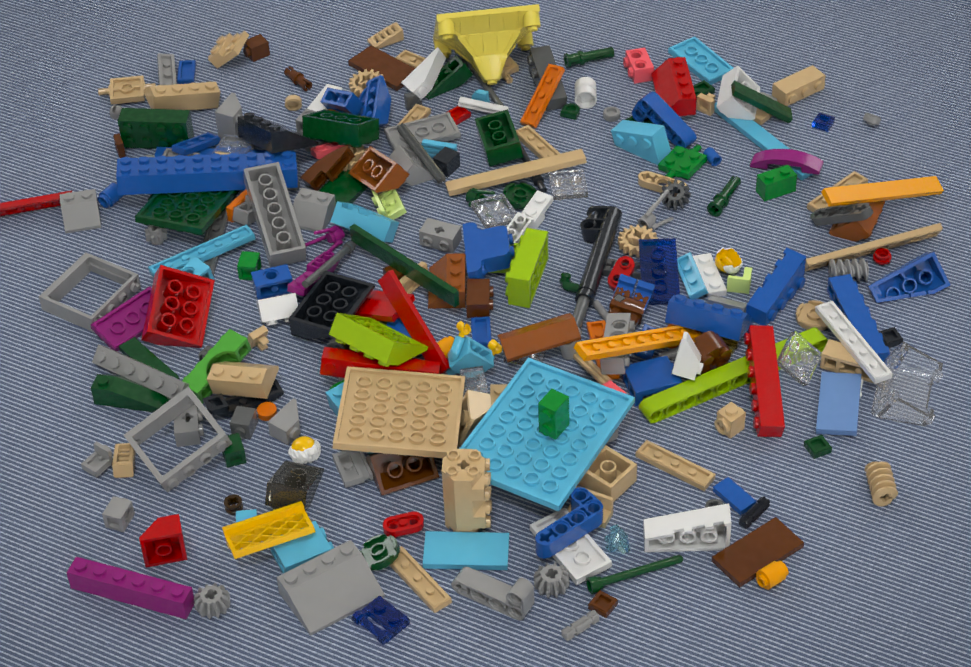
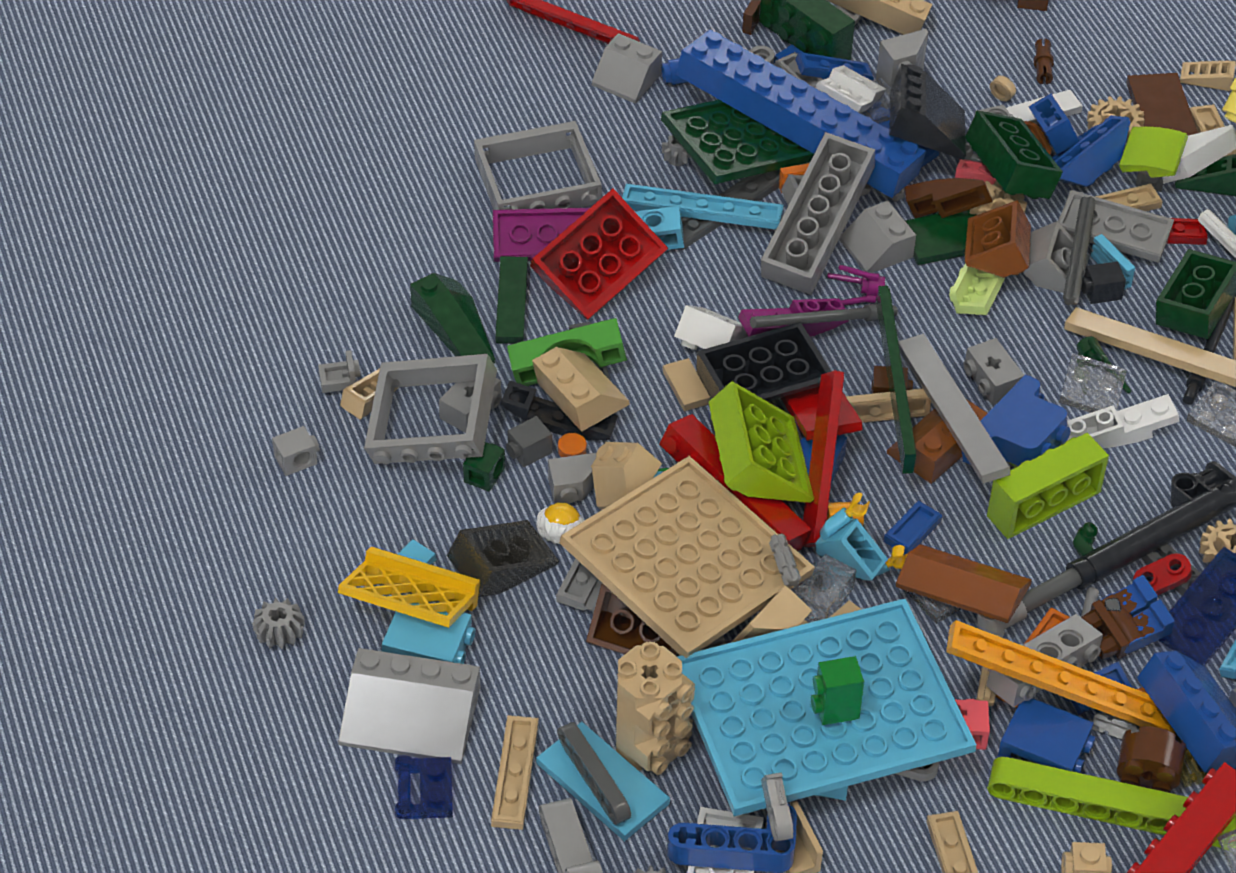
camera: 40 degrees right, 5 degrees up
(131, 587) = (216, 543): magenta brick -> none
(138, 372) = (484, 303): light grey plate -> none
(163, 542) = (297, 517): red slope -> none
(220, 145) = (851, 88): none -> white slope
(232, 500) = (424, 522): dark brown bush -> none
(248, 263) = (736, 257): green brick -> none
(259, 338) = (652, 352): tan tile -> none
(271, 281) = (737, 291): blue brick -> none
(291, 342) = (686, 384): none -> tan tile
(318, 401) = (620, 470): none -> tan slope
(377, 225) = (916, 291): medium azure wedge -> none
(380, 551) = (504, 706): dark green tile -> none
(403, 524) = (568, 694): red plate -> none
(406, 84) = (1153, 151): none -> lime slope
(441, 541) = (594, 773): none -> dark grey beam
(450, 381) = (785, 560): none -> light grey axle
(453, 260) = (954, 409): none -> light grey tile
(478, 298) = (950, 484): reddish brown brick -> none
(519, 194) = (1148, 382): dark green tile -> none
(579, 488) = (777, 807): none -> light grey piece
(610, 474) = (856, 819): tan brick -> none
(687, 359) = (1103, 745): white slope -> none

